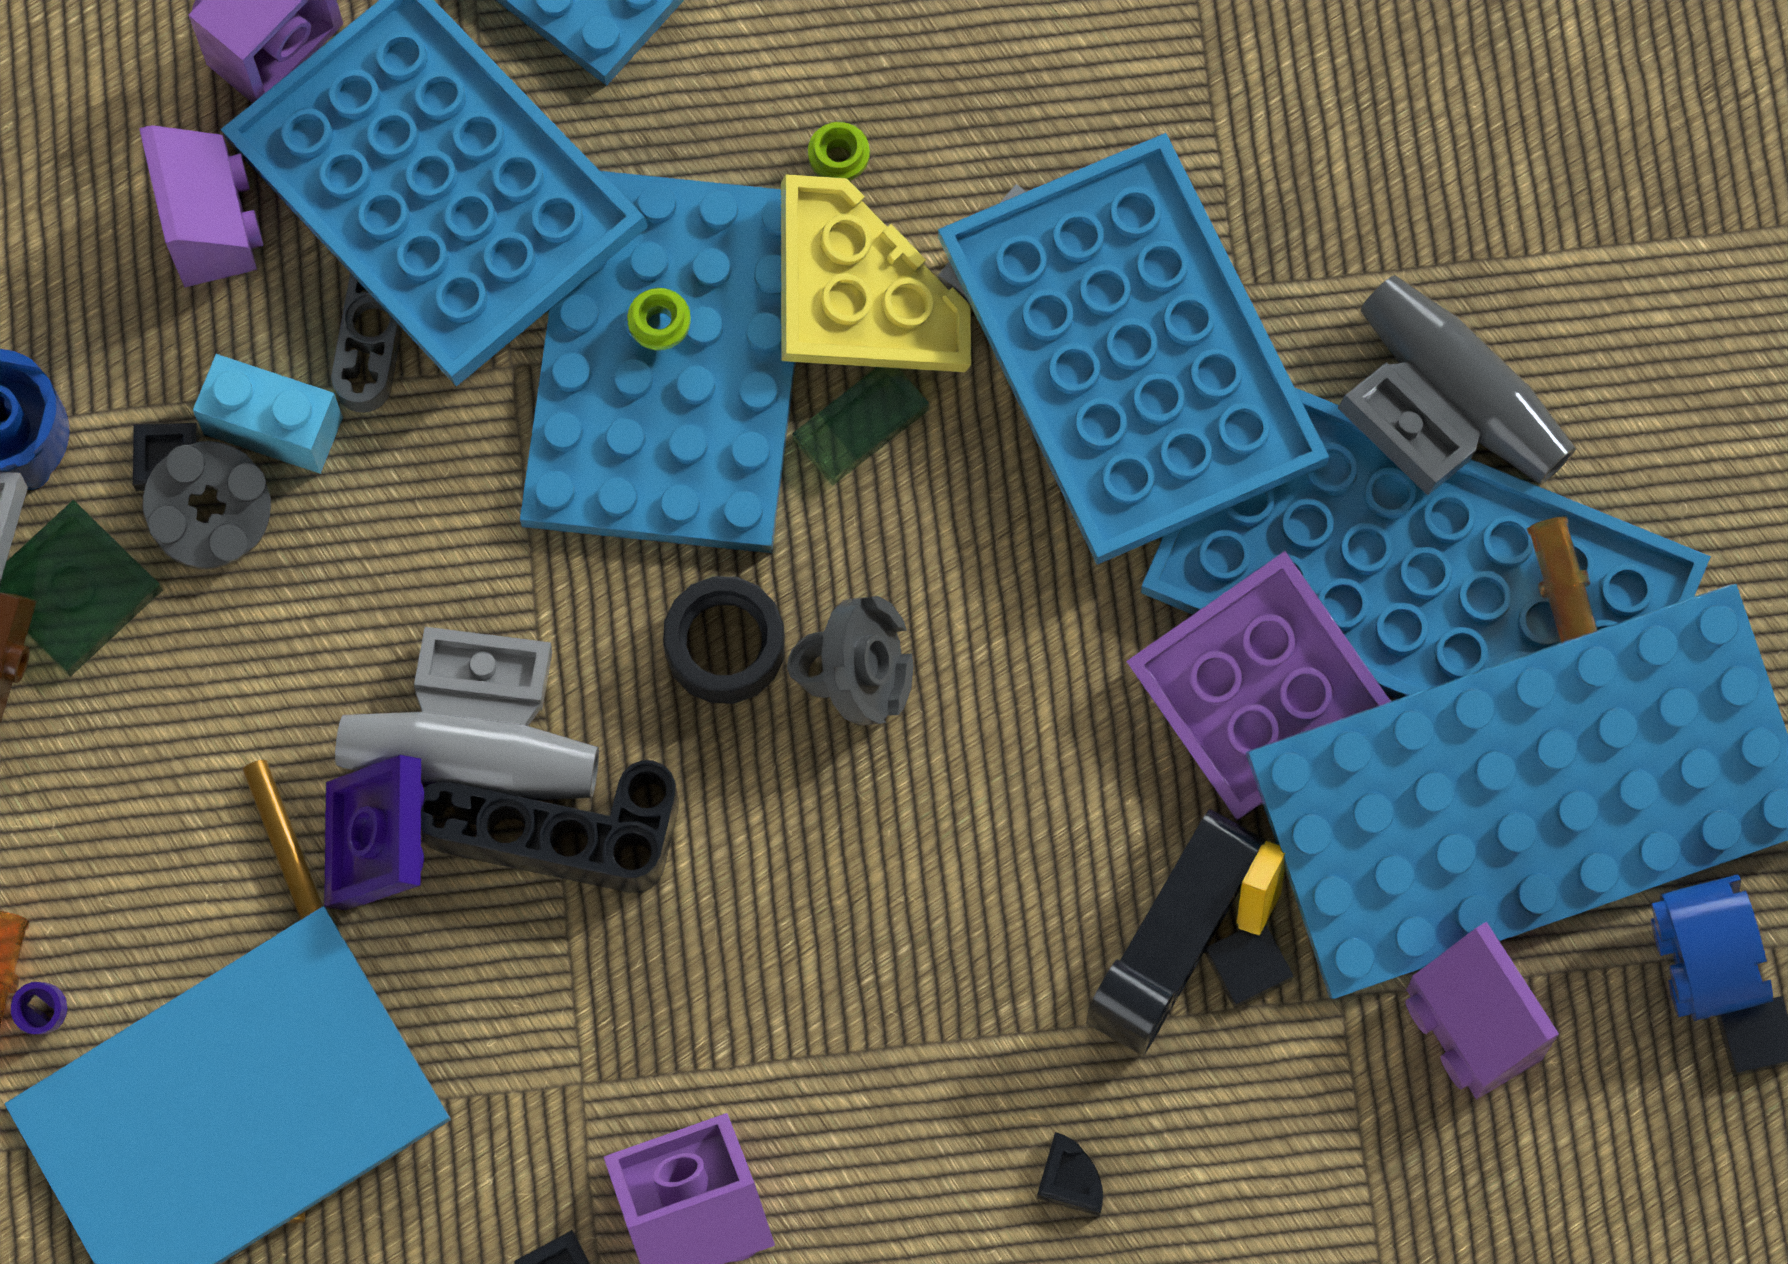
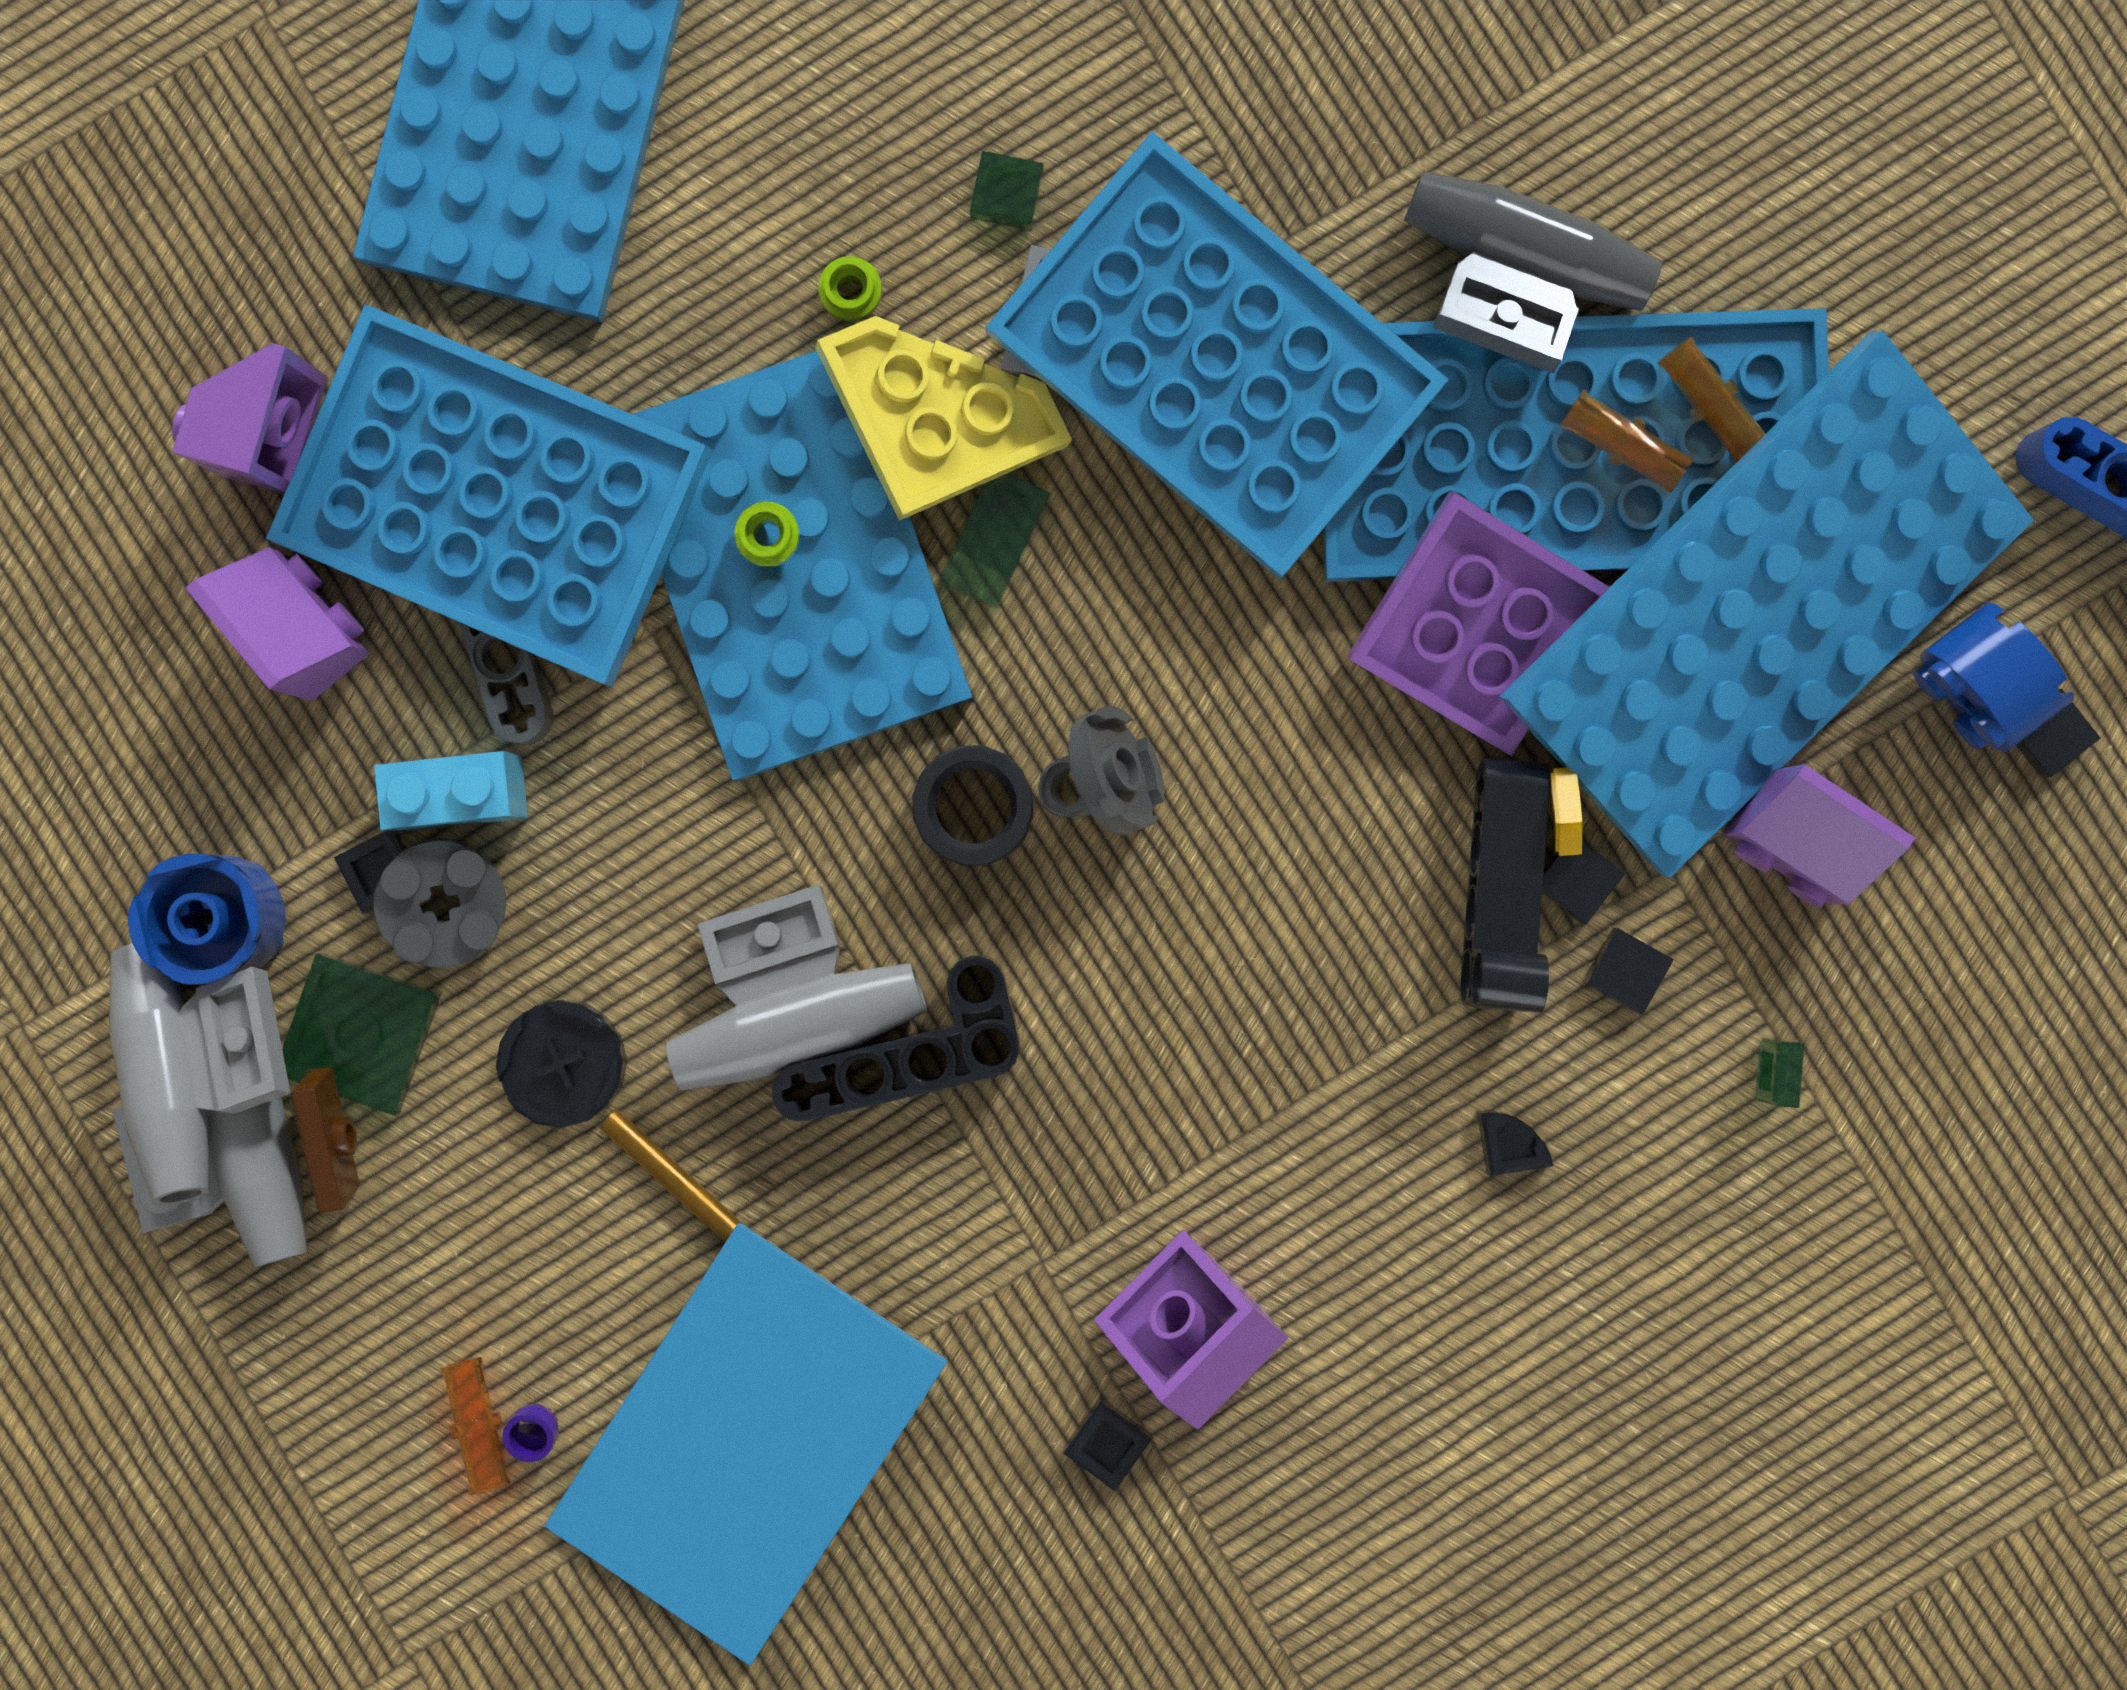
camera: 25 degrees left, 15 degrees up
(238, 698) = (561, 1063): none -> black tile
(373, 833) = (750, 1141): dark purple plate -> none
(1019, 132) = (1006, 190): none -> clear green tile
(1256, 1068) = (1628, 971): none -> black tile
(1352, 1221) = (1779, 1072): none -> clear green tile
(1467, 584) = (1627, 441): none -> clear orange pin

